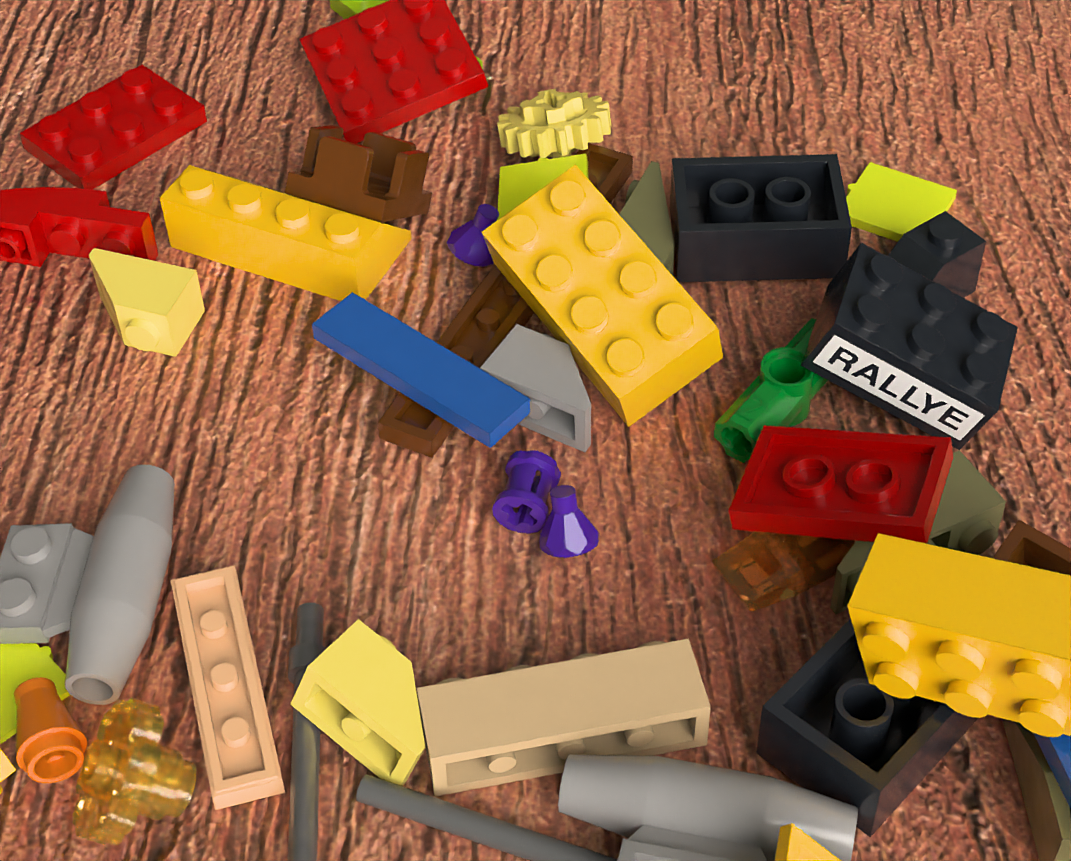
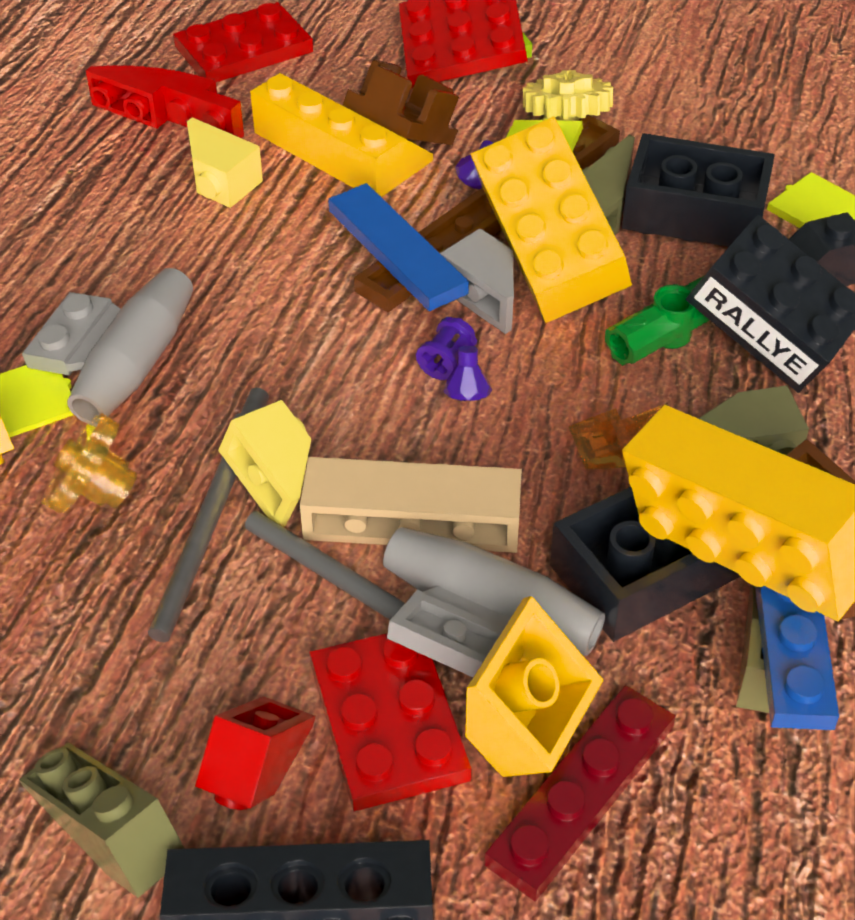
camera: 15 degrees right, 0 degrees up
(46, 734) = (43, 431): orange cone -> none
(226, 688) = (181, 433): light nougat tile -> none
(842, 484) = (684, 378): red plate -> none

